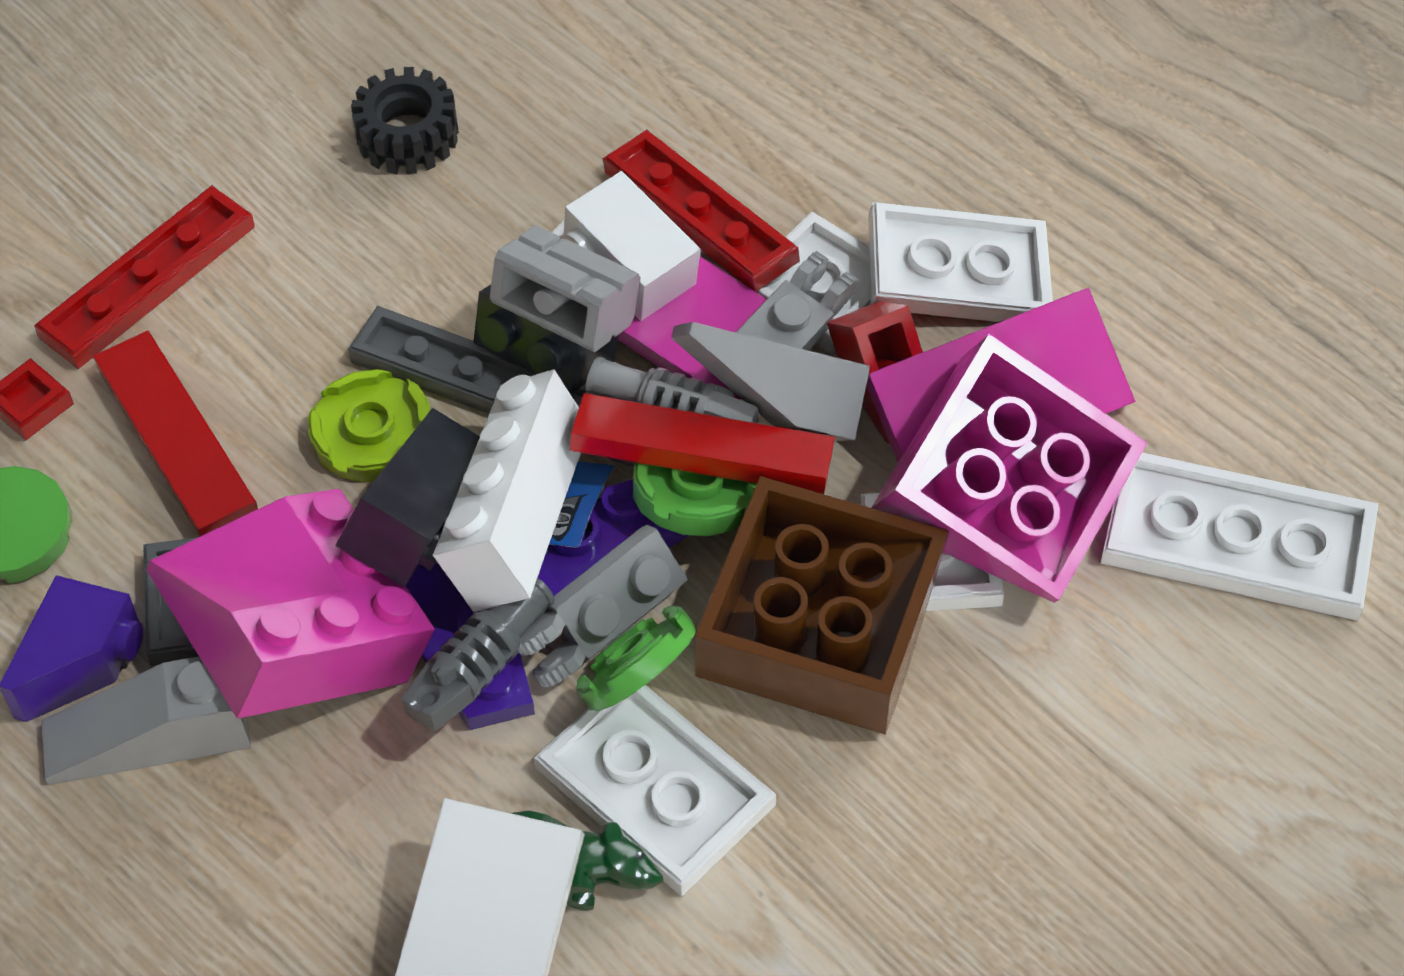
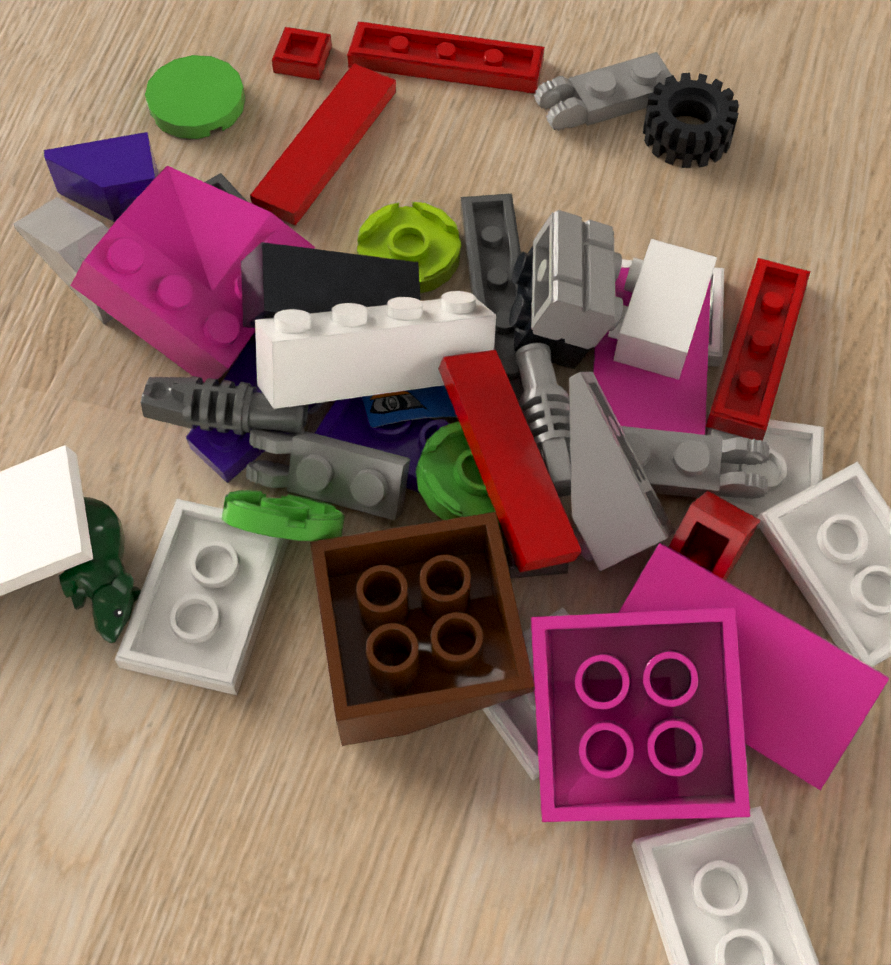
camera: 60 degrees right, 5 degrees up
(310, 164) = (601, 92): none -> light grey hinge

